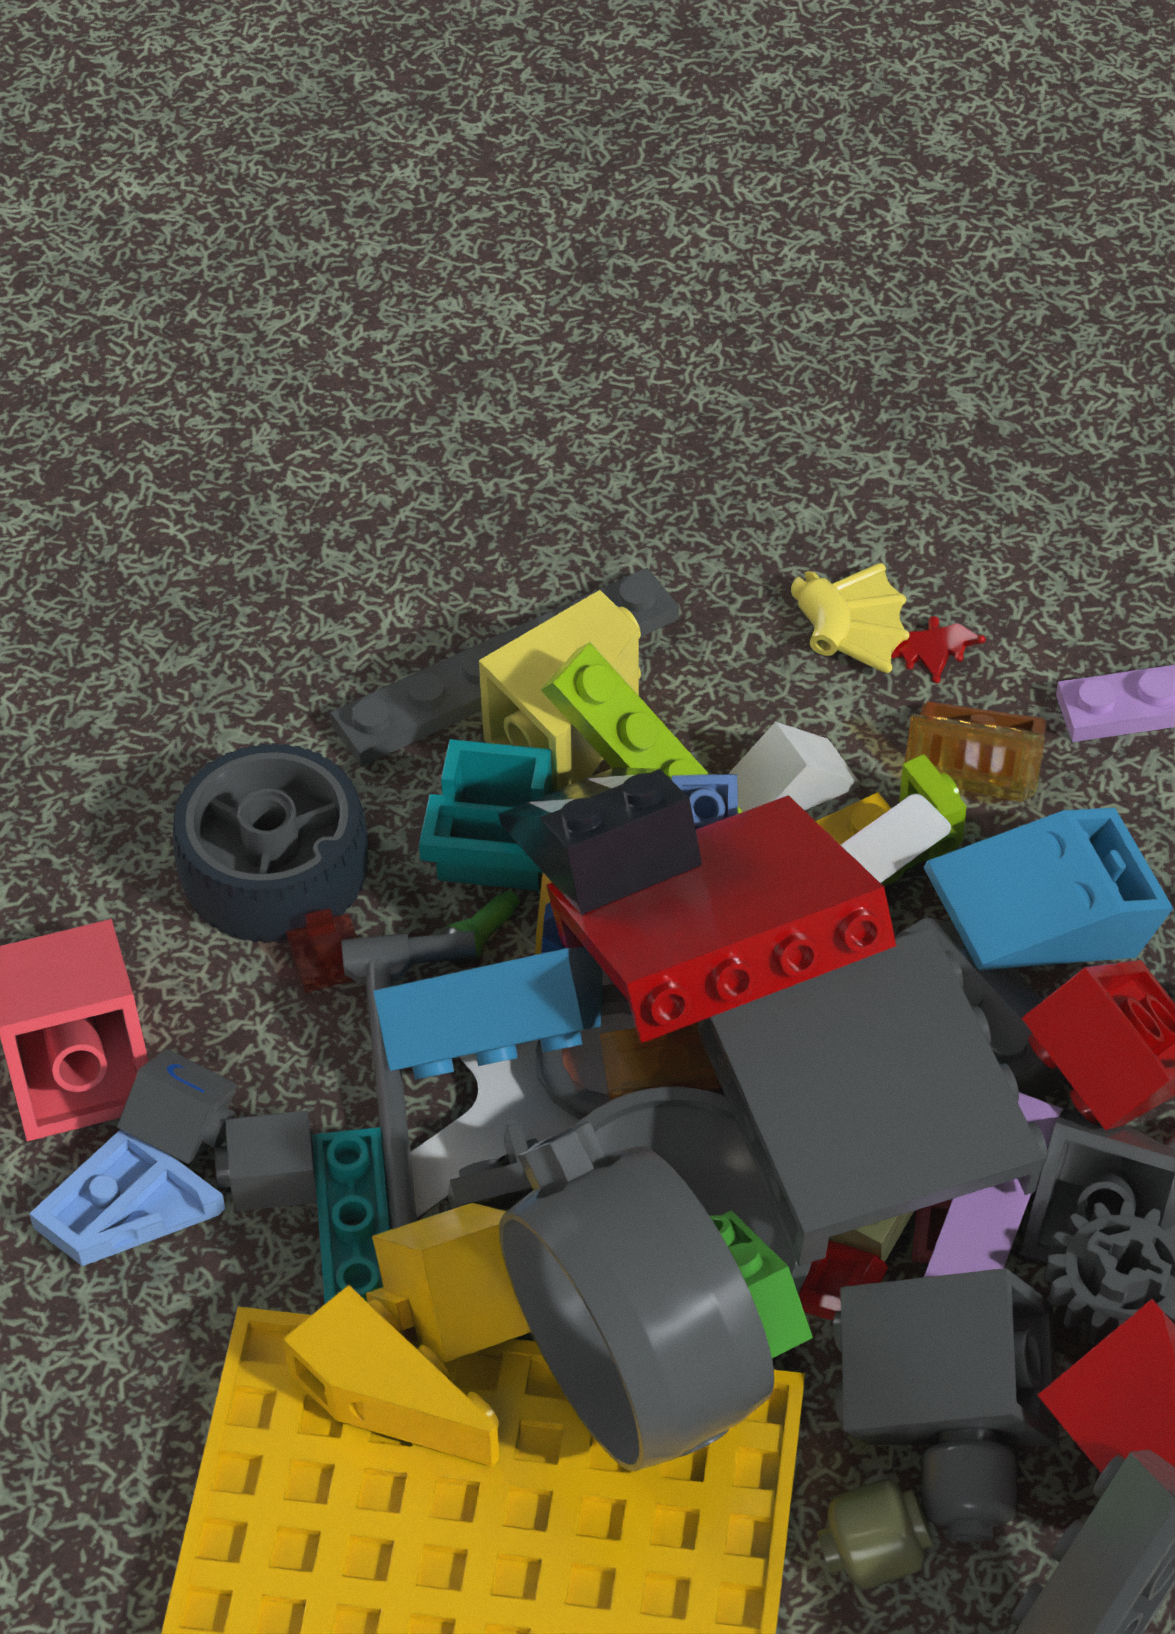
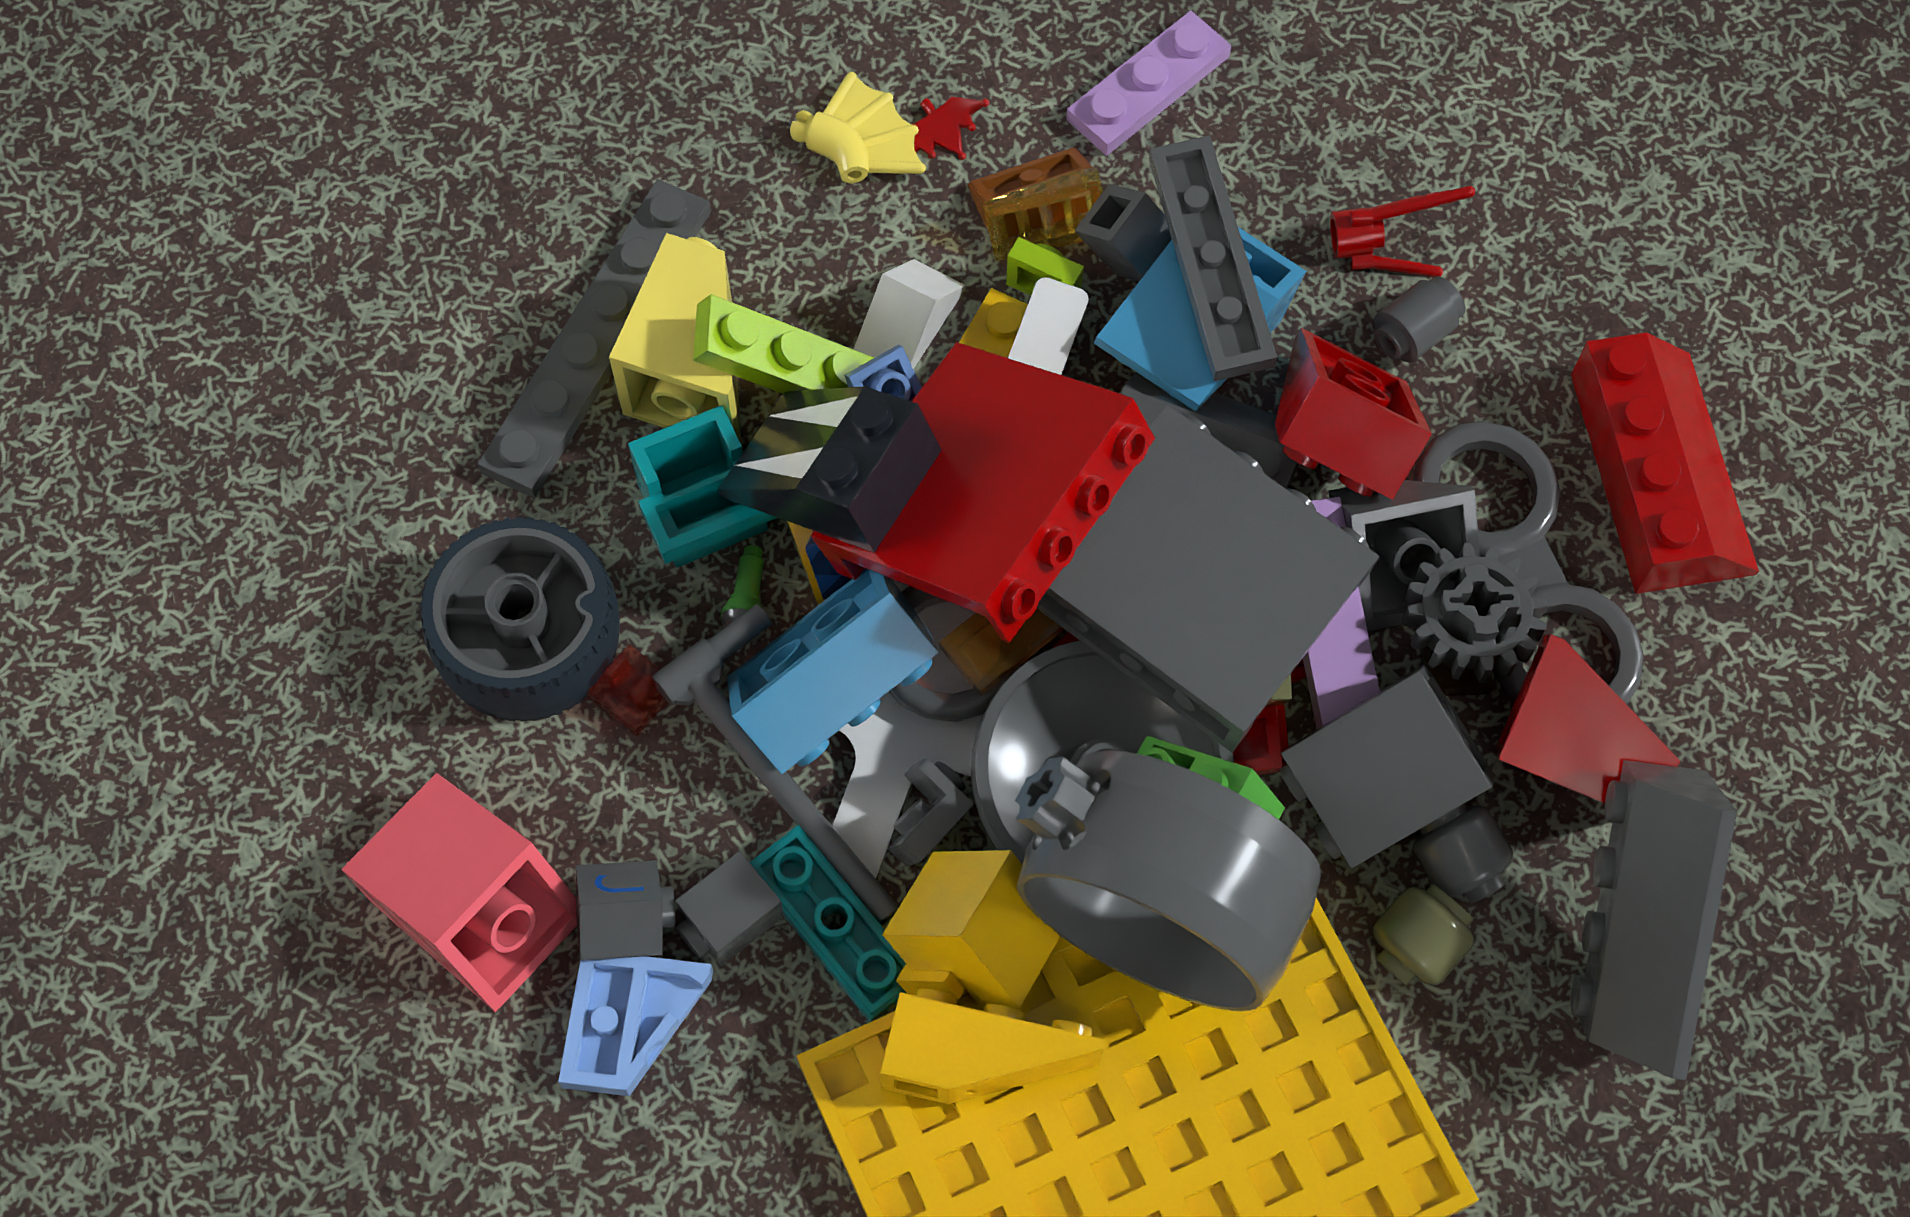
camera: 35 degrees left, 15 degrees up
(1027, 790) = (1125, 231): none -> dark grey brick
(1074, 841) = (1212, 258): none -> dark grey plate

